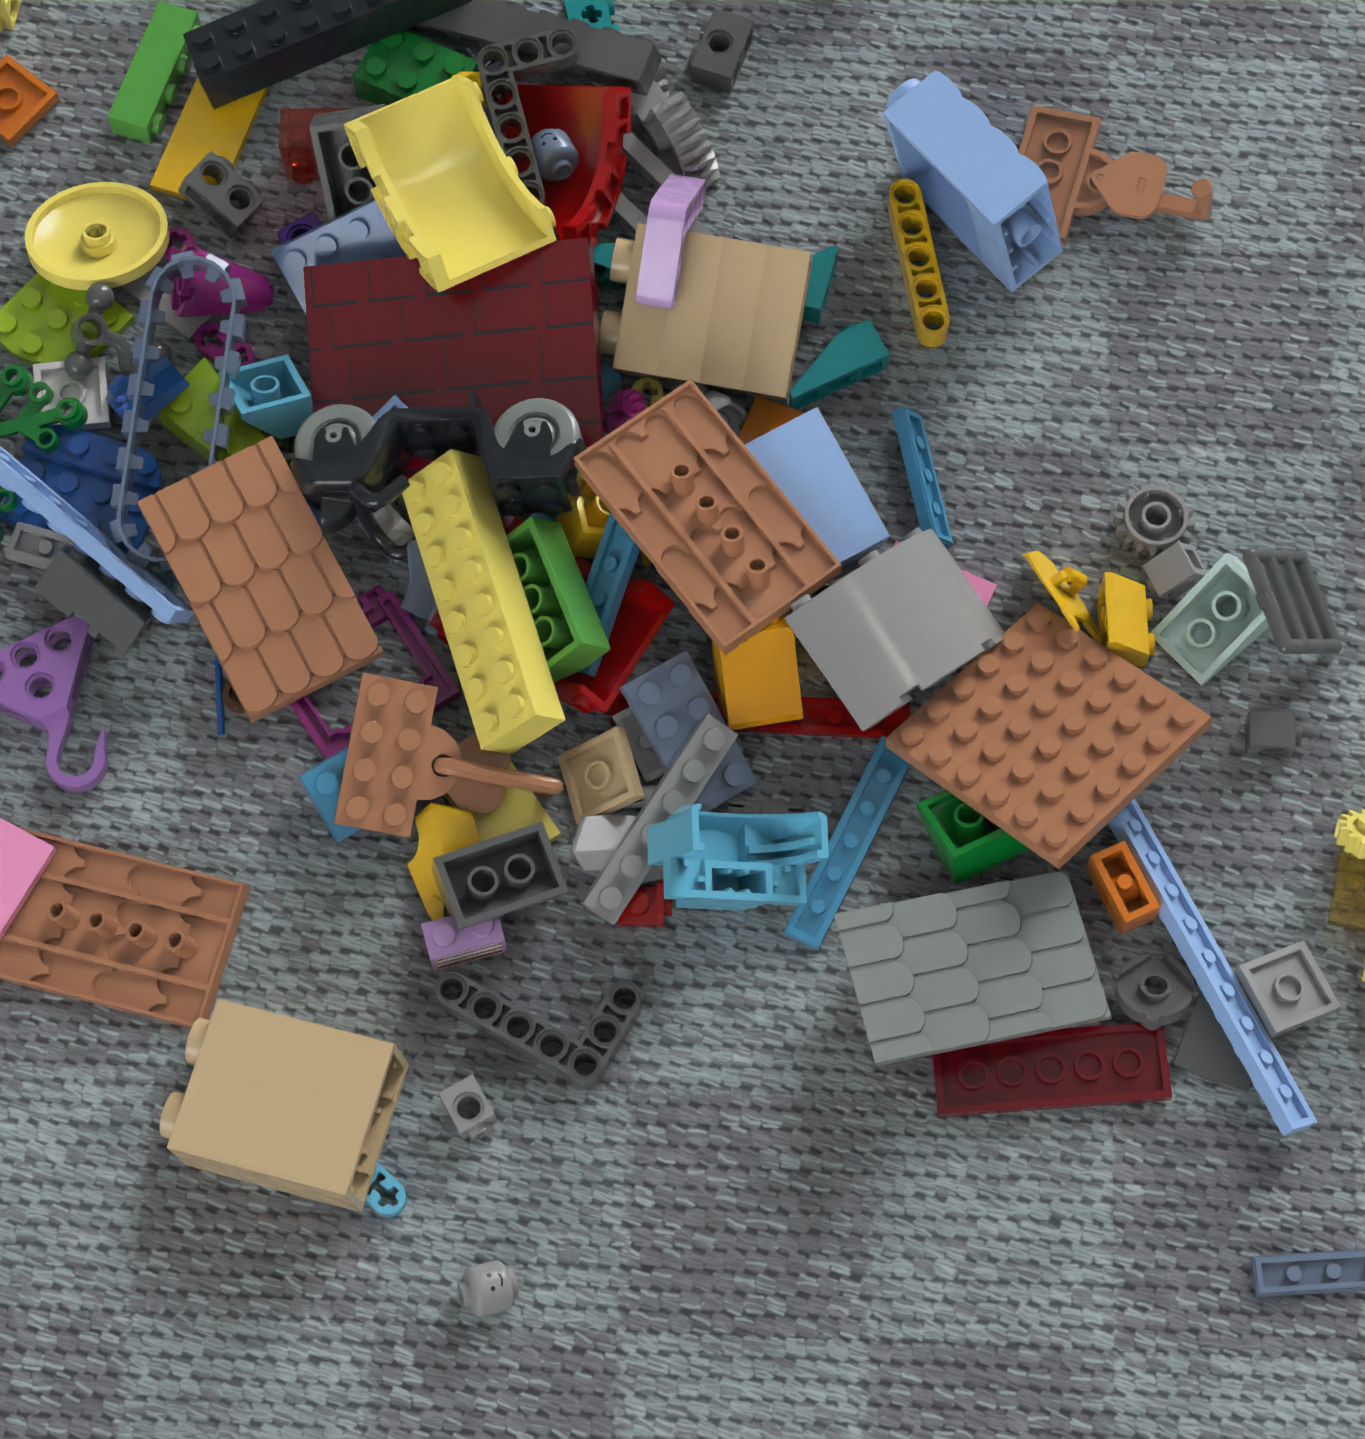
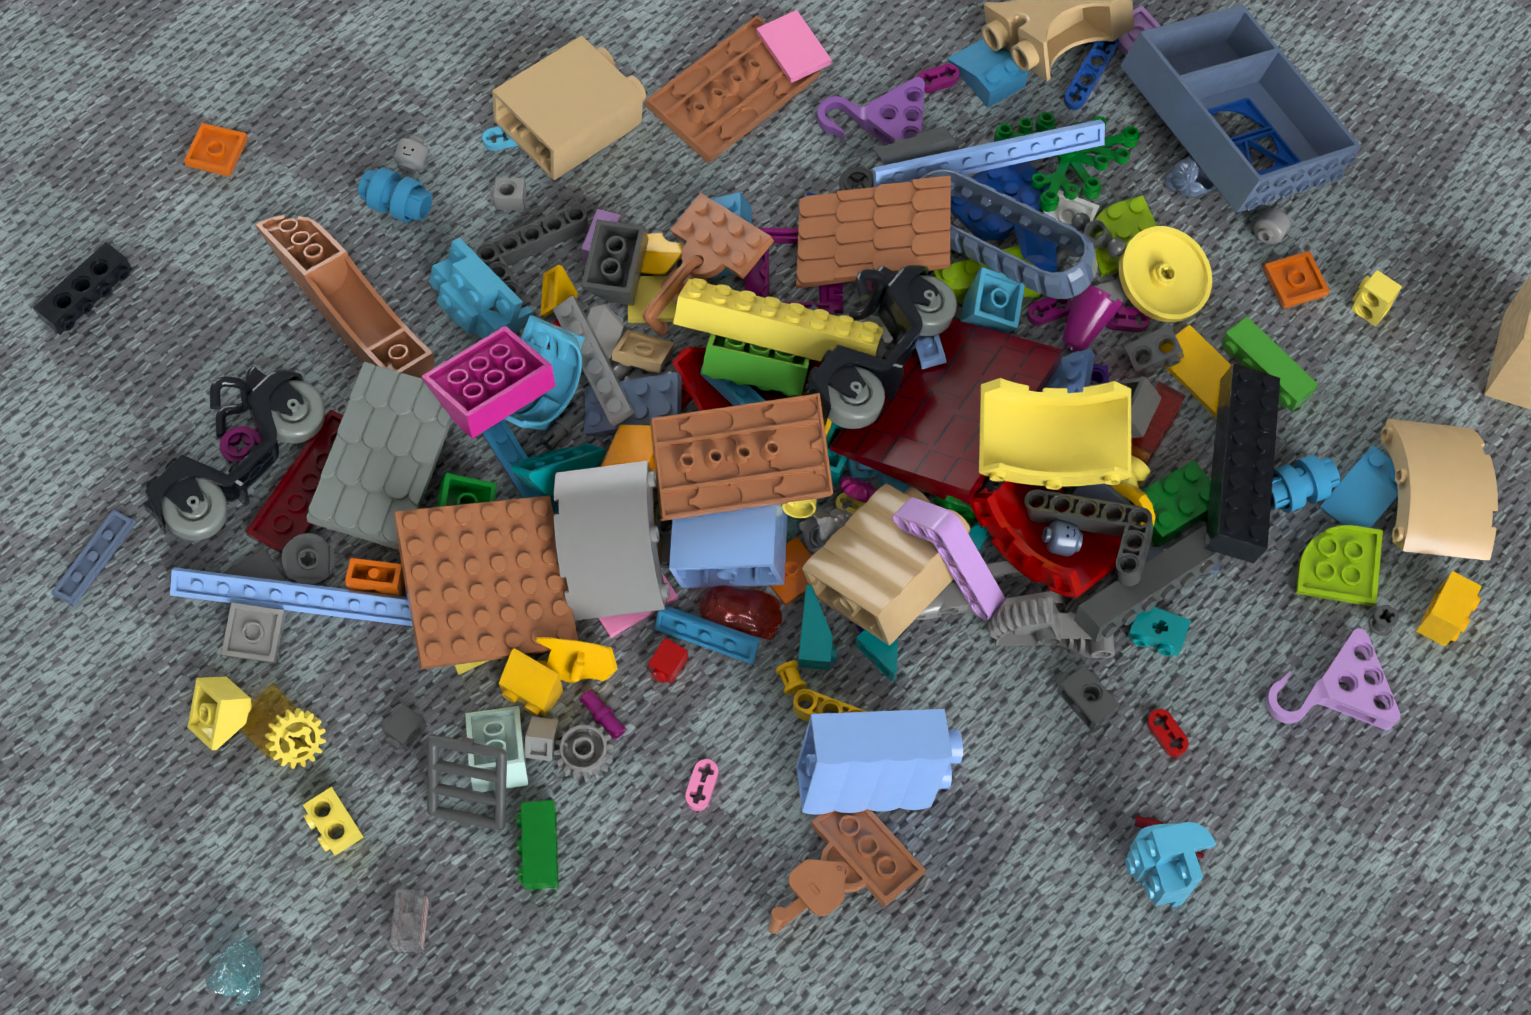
camera: 120 degrees right, 5 degrees down
(161, 662) = (856, 175): none -> dark grey gear
(570, 1236) = (387, 191): none -> dark azure piece
(577, 951) = (555, 289): none -> yellow slope
(659, 1032) = (470, 289): none -> medium azure piece
(771, 1205) = (345, 296): none -> nougat slope
(798, 882) = (490, 381): none -> dark pink slope
(833, 772) = (540, 470): none -> teal wedge
(873, 459) = (742, 610): none -> clear red hair
(910, 360) = (790, 677): none -> yellow bush
(986, 499) = (667, 661): none -> red brick
(1064, 1182) = (232, 438): none -> magenta gear
(1095, 532) = (602, 714): none -> magenta pin
(1100, 389) = (695, 783): none -> bright pink beam
(1185, 1174) = (195, 496): none -> piece
(1292, 500) = (538, 845): none -> green brick

